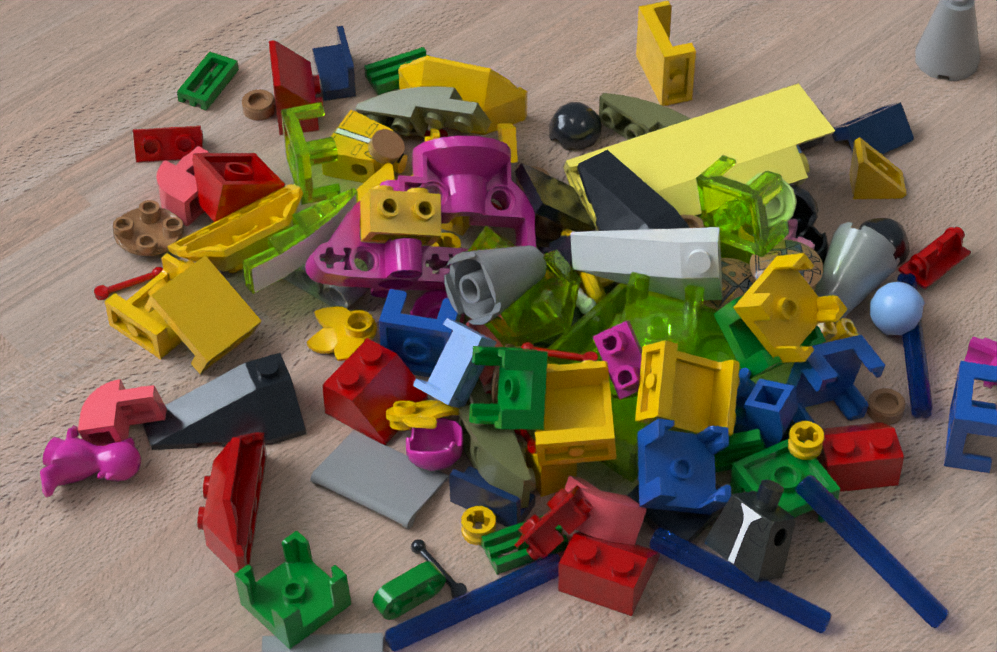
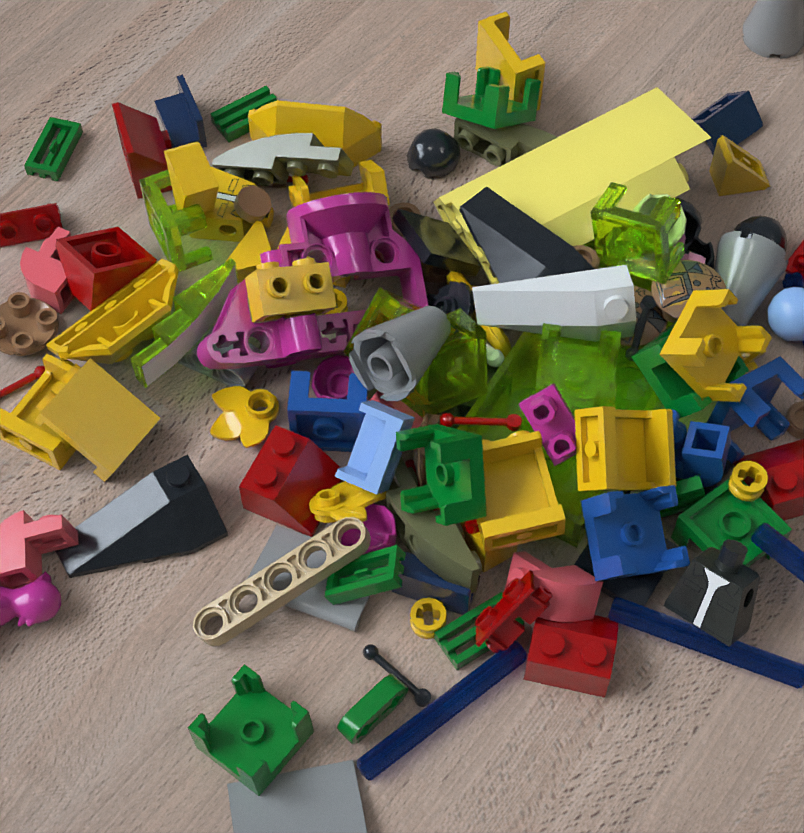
camera: 10 degrees left, 10 degrees up
(234, 499) = (168, 634): red wedge -> none
(258, 104) = (110, 169): medium nougat tile -> none
(328, 470) = (262, 582): none -> tan beam
(330, 112) = (191, 177): none -> yellow slope
(424, 475) = (366, 581): none -> green tile
(636, 85) = (491, 102): none -> green panel
(743, 275) = (647, 305): none -> black hinge

